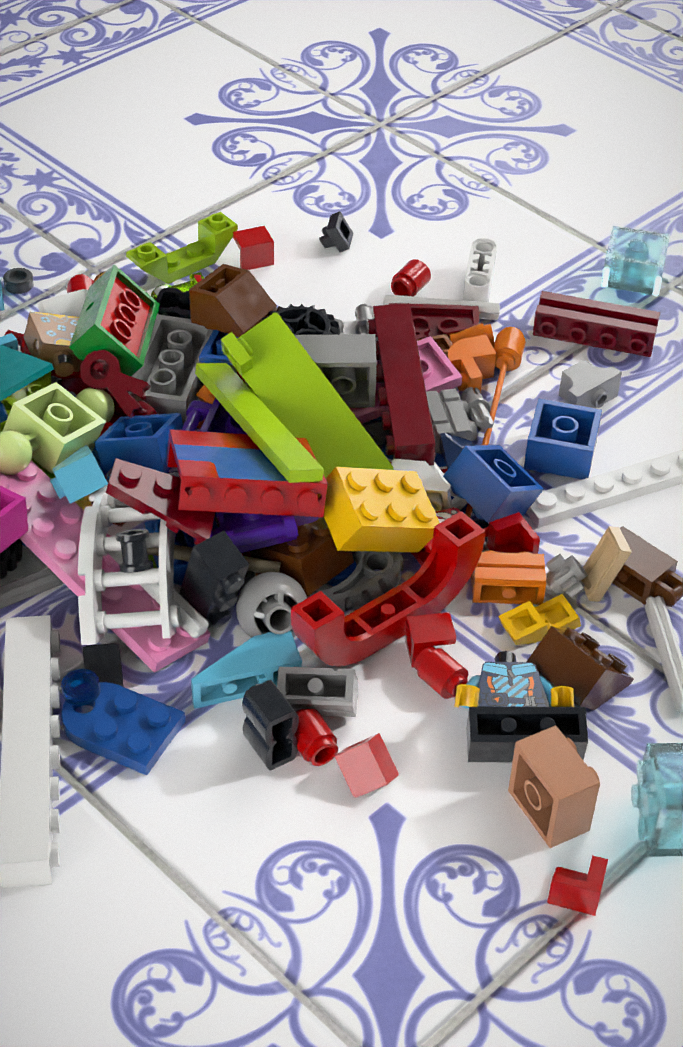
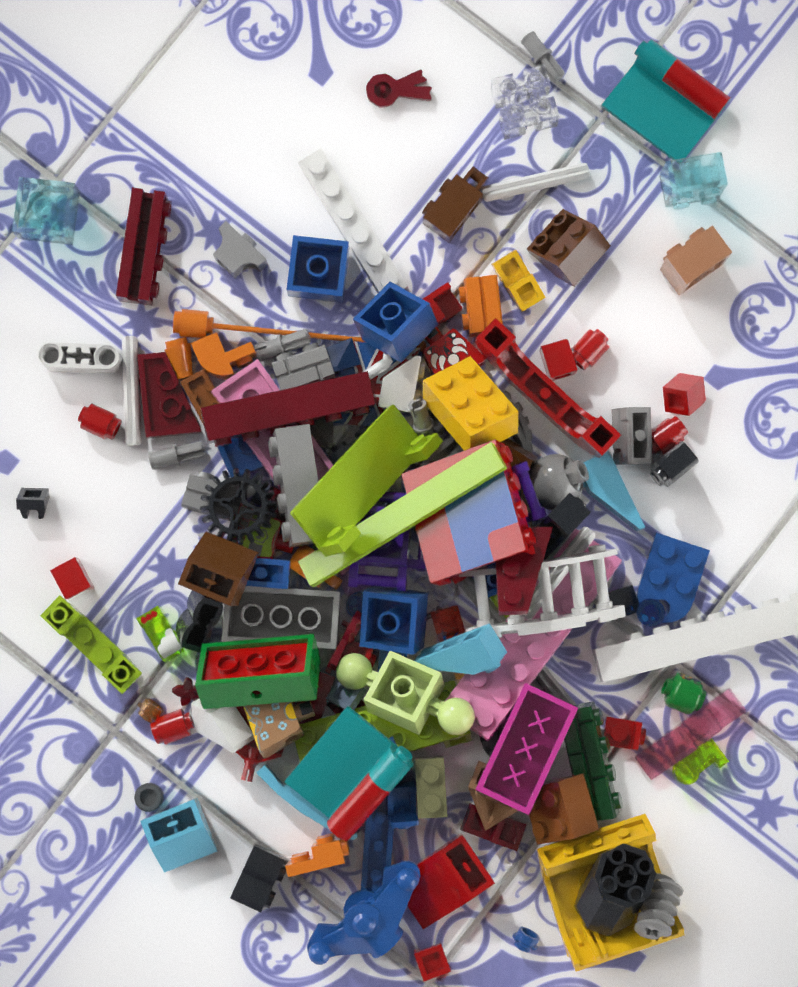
camera: 95 degrees left, 40 degrees up
(102, 372) = (333, 664): dark red piece -> none
(134, 551) = (555, 588): black bush -> none
(495, 730) = (647, 282): black brick -> none
(511, 685) = (607, 296): torso -> none
(565, 575) = (475, 261): light grey gear -> none
(577, 889) = (759, 243): red panel -> none
(605, 563) = (469, 230): tan tile -> none

